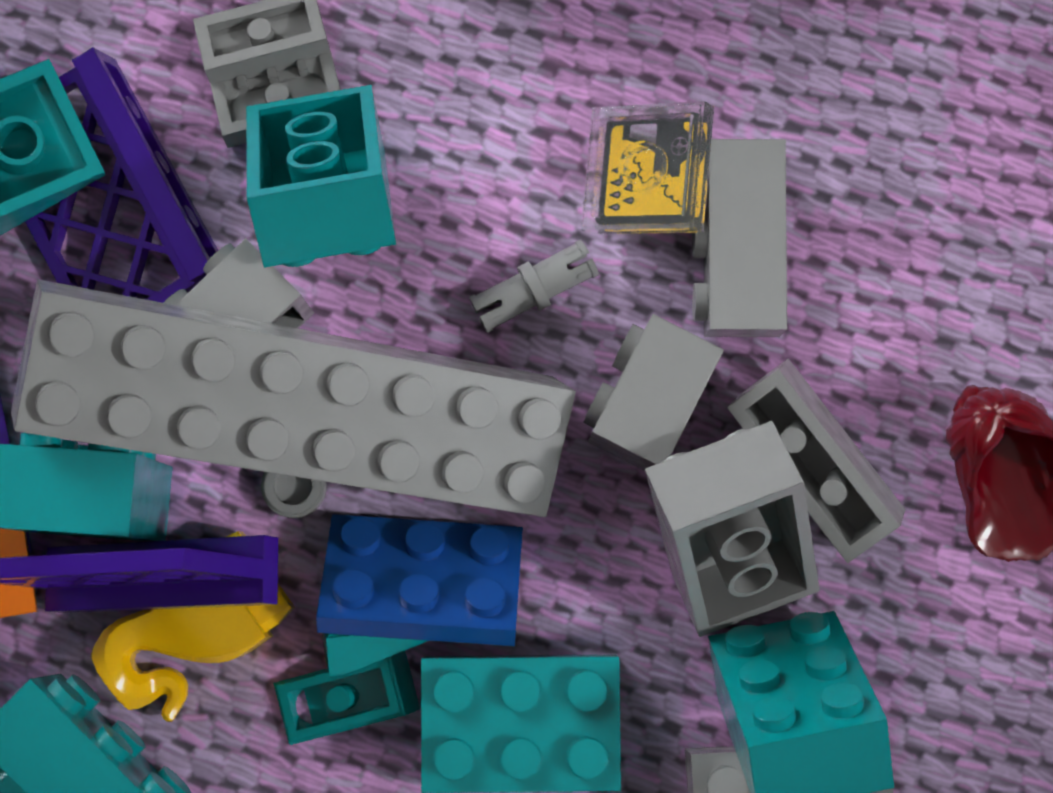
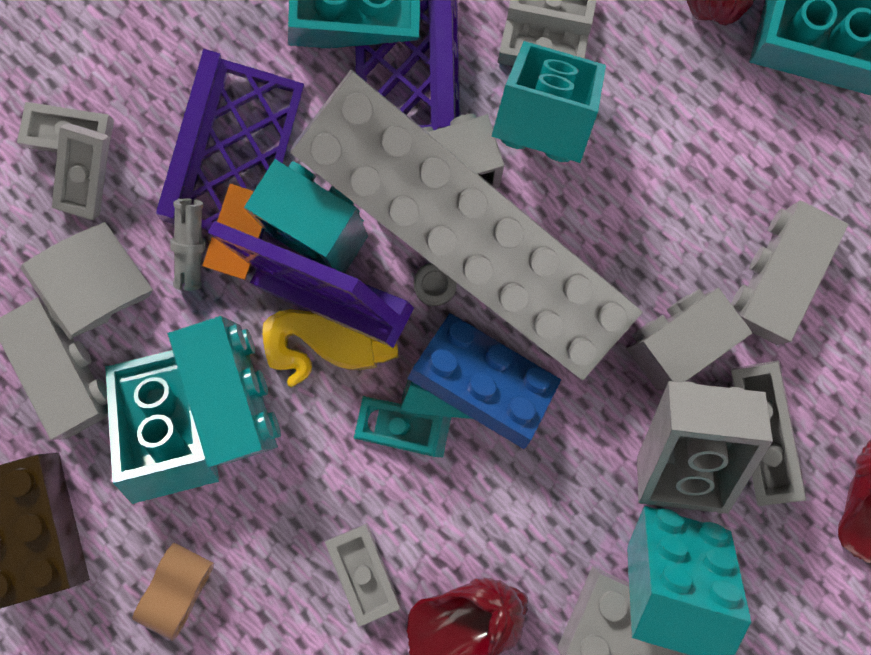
camera: 35 degrees right, 0 degrees up
(520, 723) = (503, 500): teal brick -> none
(534, 285) = (642, 237): light grey pin -> none
(648, 168) = (751, 200): clear tile -> none

